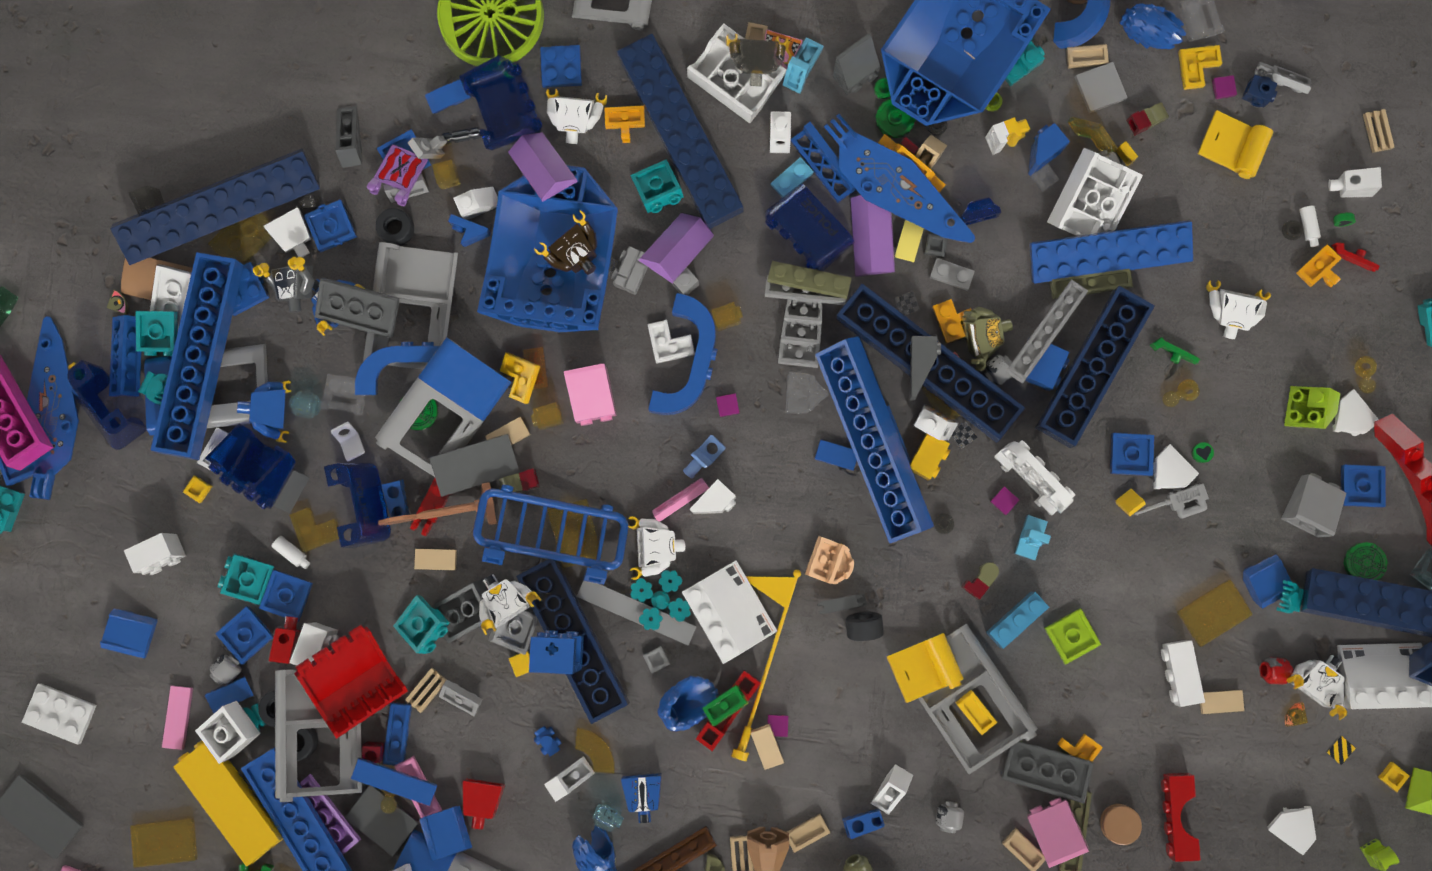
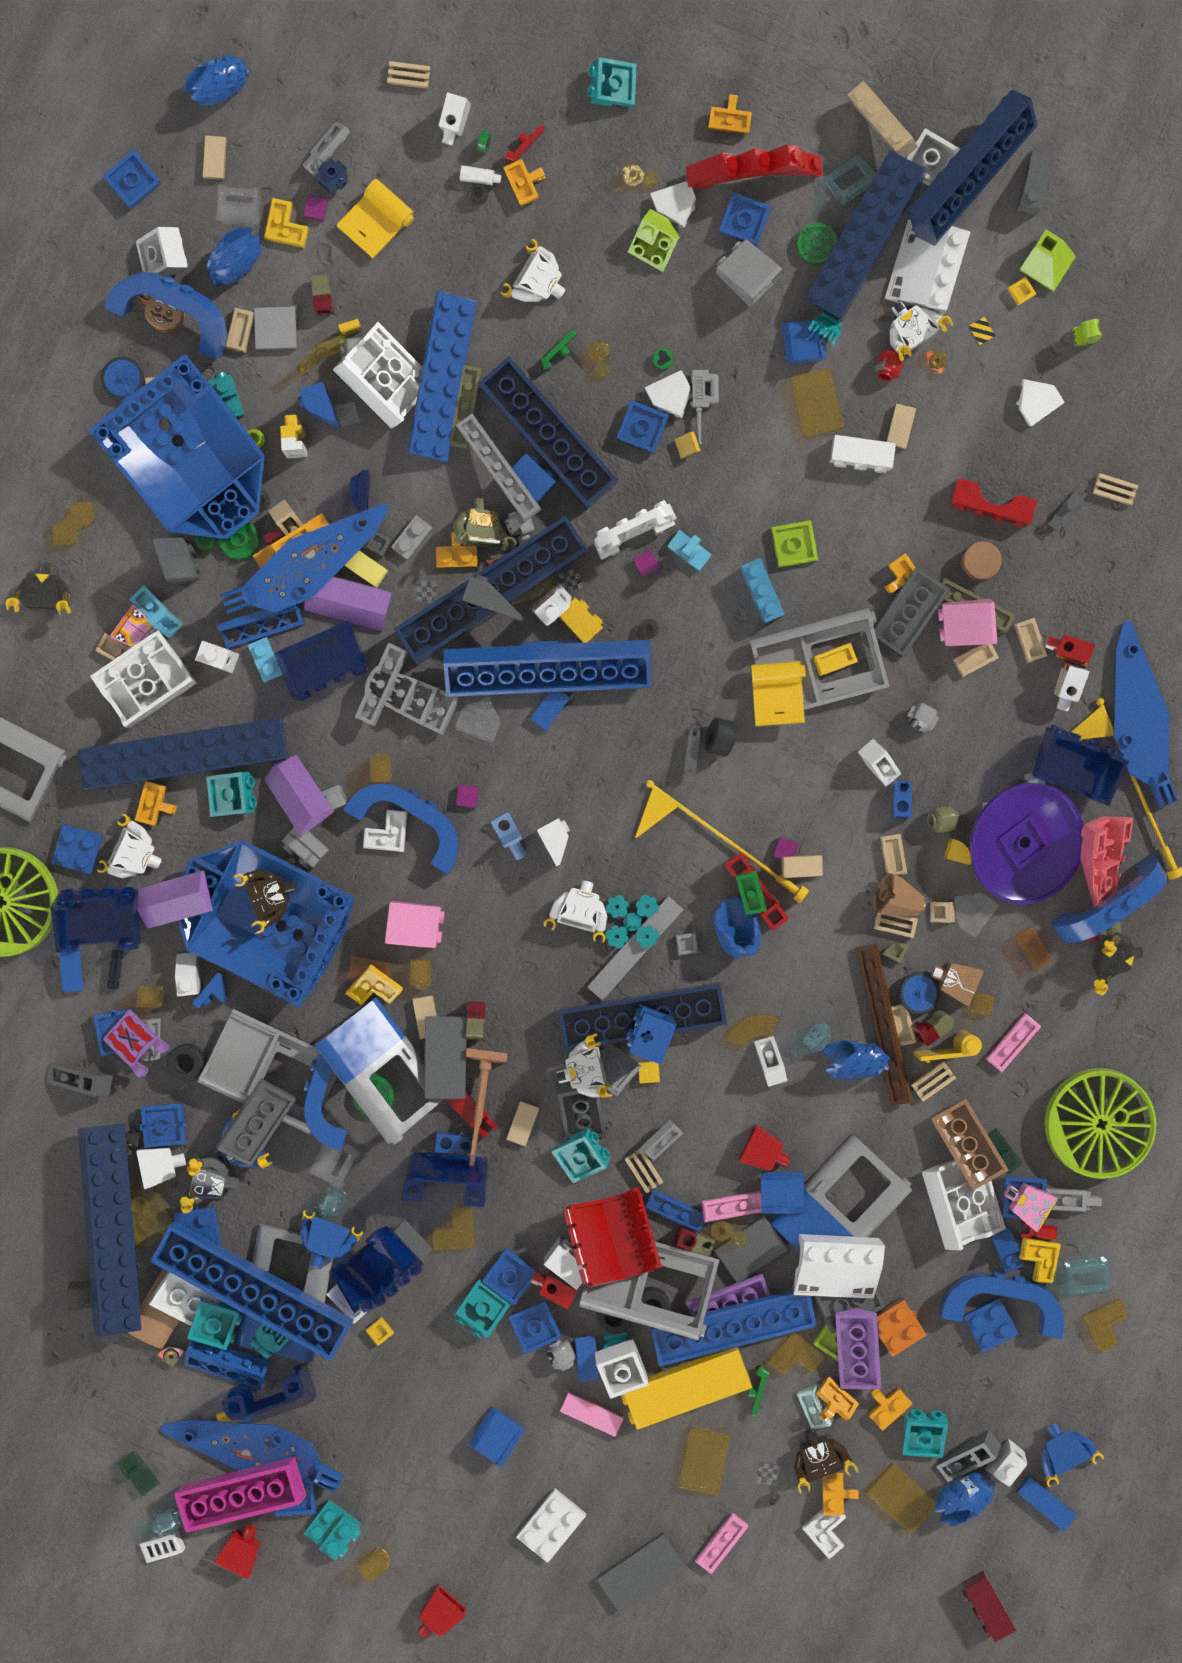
camera: 90 degrees left, 5 degrees up
(155, 553) = (429, 1388): white brick -> none
(290, 552) = (470, 1259): white cylinder -> none
(350, 443) = (383, 1170): white bracket -> none
(394, 781) = (719, 1226): blue tile -> none
(428, 147) = (118, 1005): light grey hinge -> none
(494, 554) = (537, 1064): blue bar -> none
(549, 745) = (724, 1072): blue piece -> none
(572, 533) = (542, 982): clear yellow tile -> none
(642, 794) = (807, 997): blue torso -> none
(680, 499) = (543, 872): bright pink tile -> none
(729, 611) = (664, 859): white piece -> none
(756, 57) = (137, 655): clear smoke torso -> none
(809, 279) = (373, 678): olive plate -> none
(830, 561) = (649, 749): light nougat slope -> none
(987, 574) = (709, 603): leg -> none

